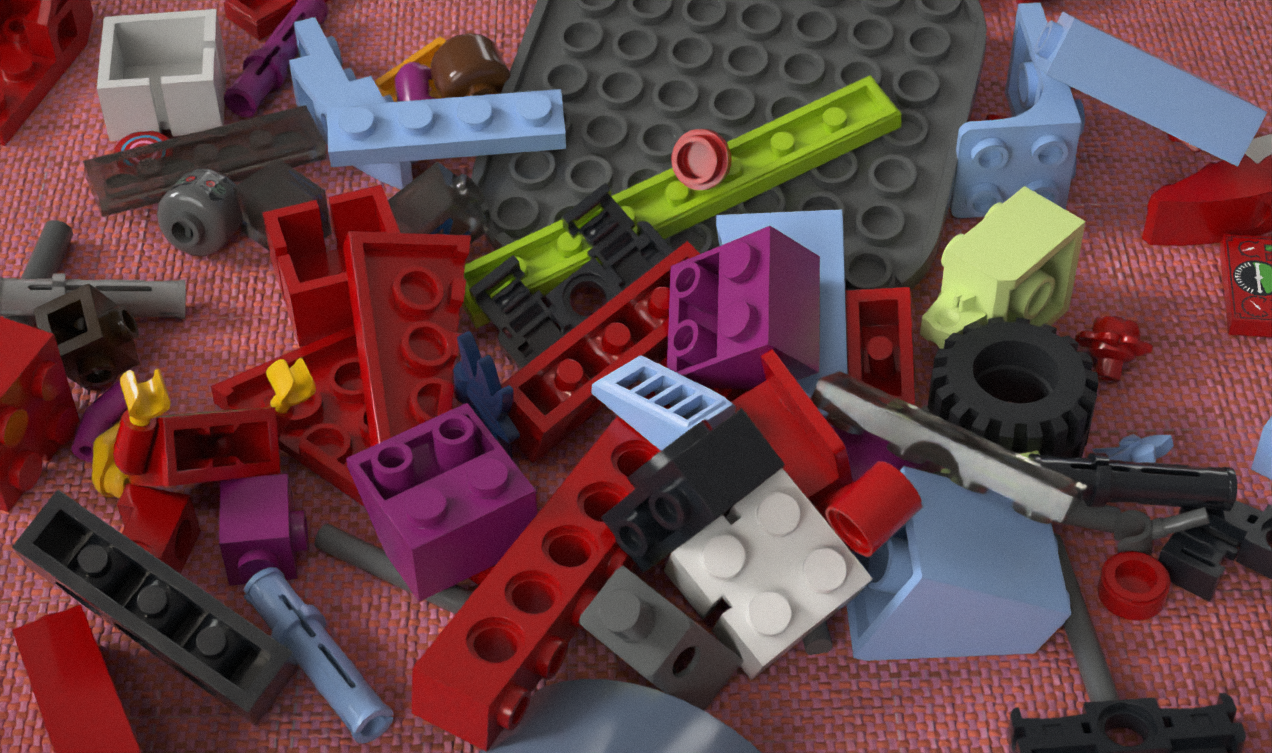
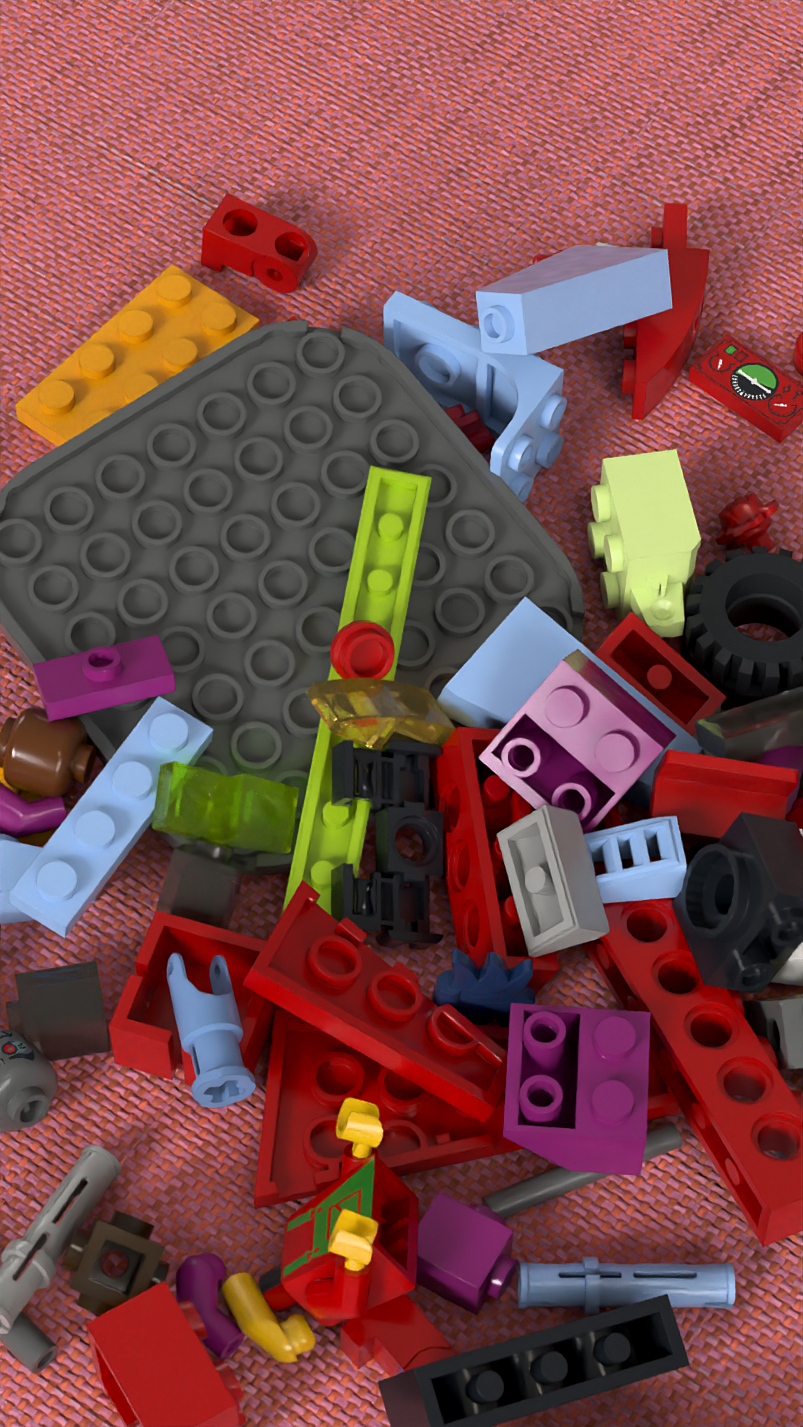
camera: 55 degrees left, 10 degrees up
(287, 254) = (211, 1034): none -> medium blue piece
(509, 178) = (225, 808): none -> clear neon green slope
(544, 53) = (104, 677): none -> magenta plate
(606, 370) = (552, 881): none -> light grey slope
(652, 184) = (375, 708): none -> clear yellow slope

